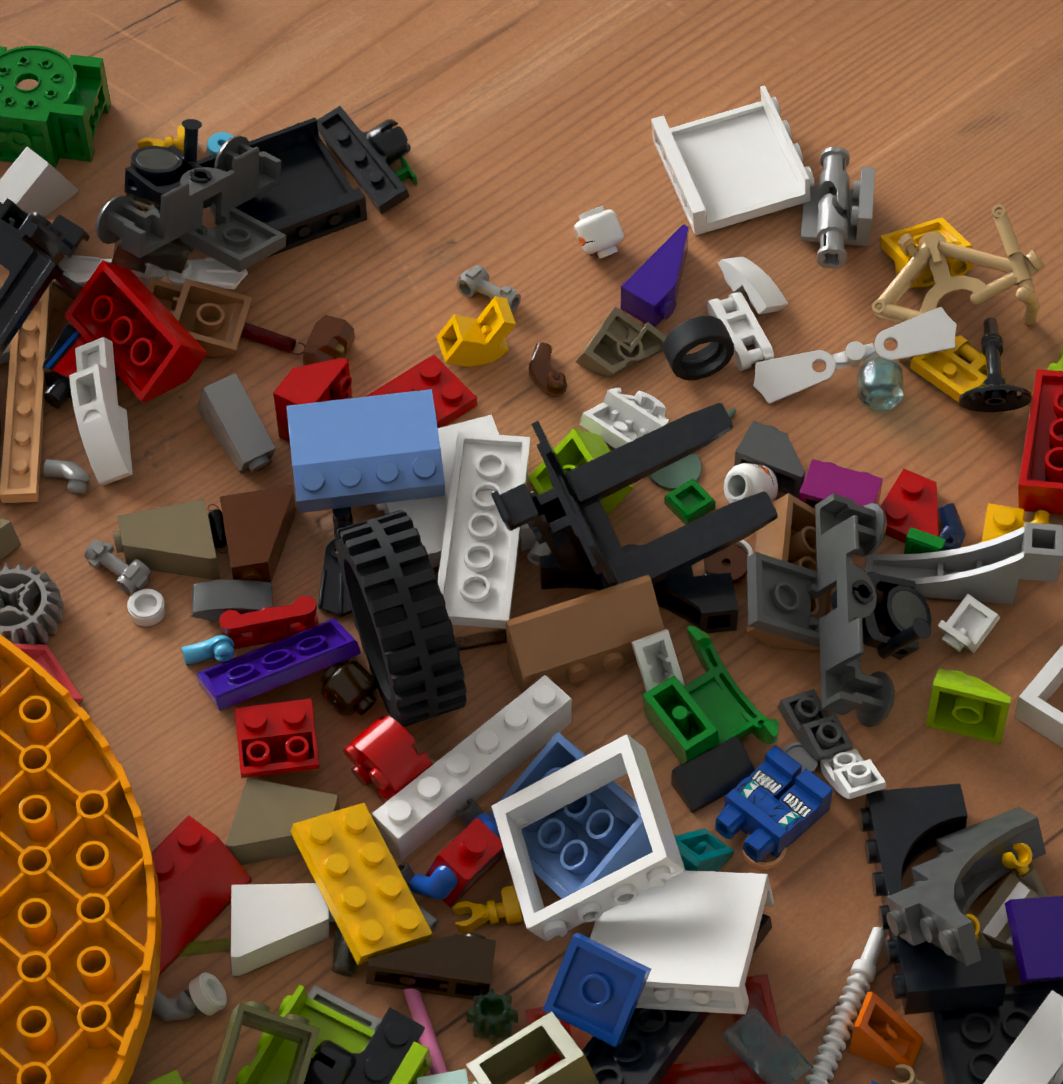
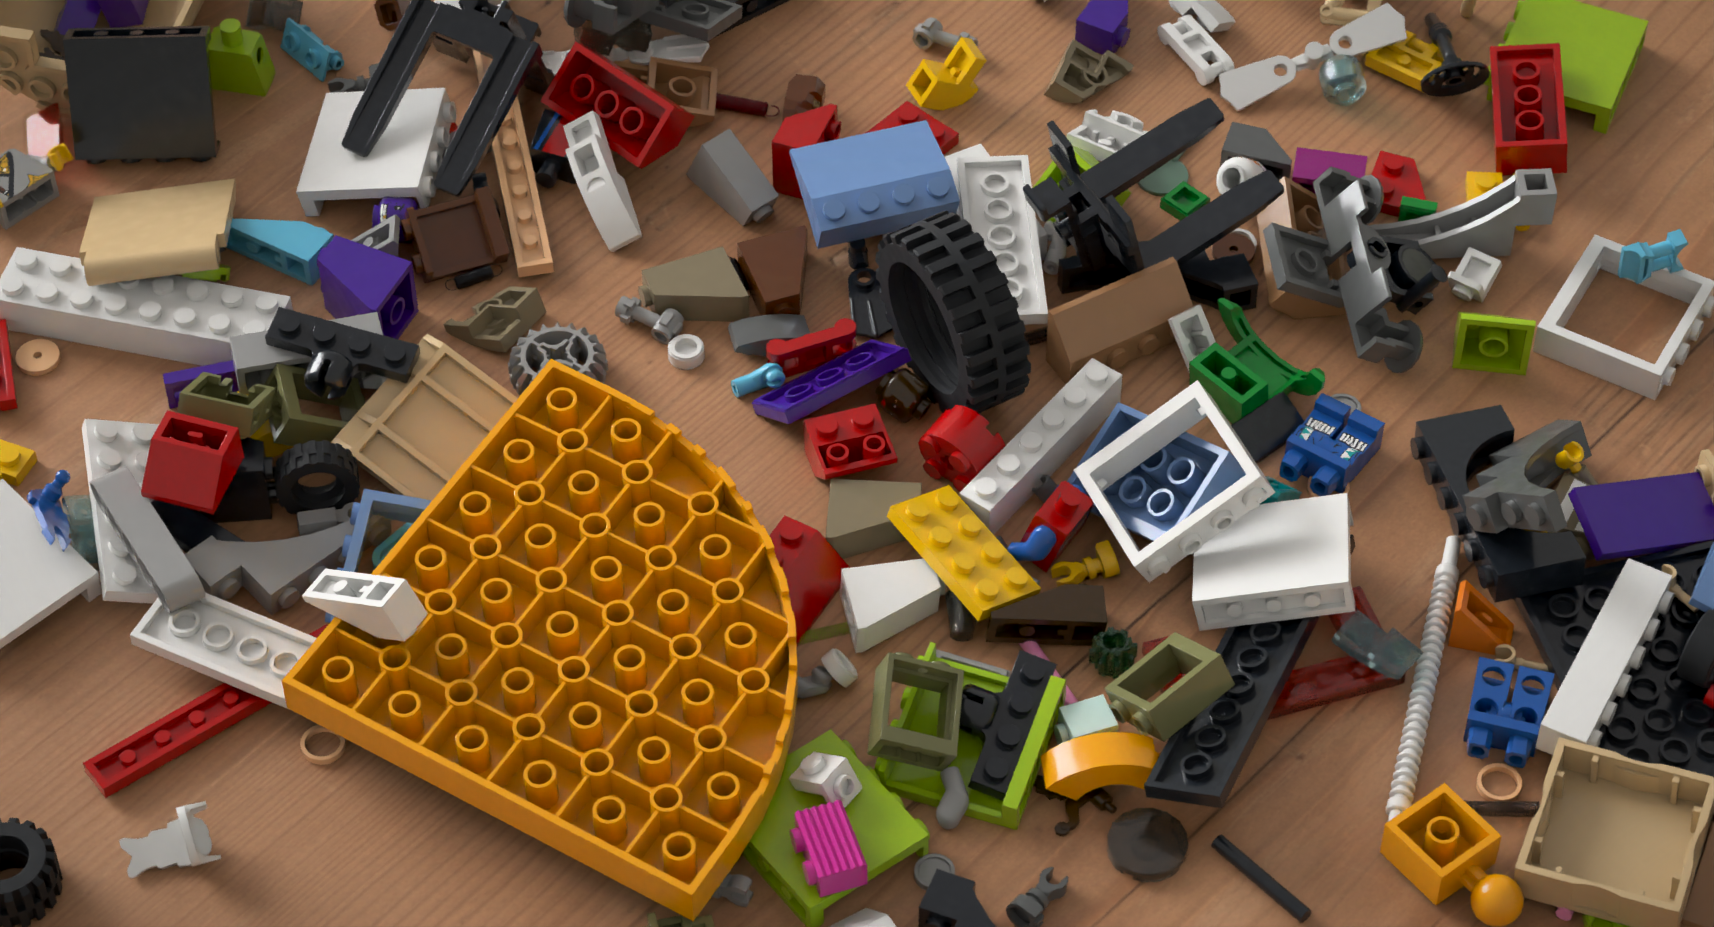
camera: 10 degrees left, 5 degrees down
(67, 470) = (577, 241): light grey arm -> none
(544, 374) = (1017, 107): reddish brown arm -> none
(596, 989) = (1214, 605): blue plate -> none
(691, 334) = (1155, 52): black tyre -> none
(813, 727) = (1350, 379): dark grey slope -> none
(851, 774) = (1398, 410): white slope -> none
(952, 528) = (1437, 192): dark blue arm -> none

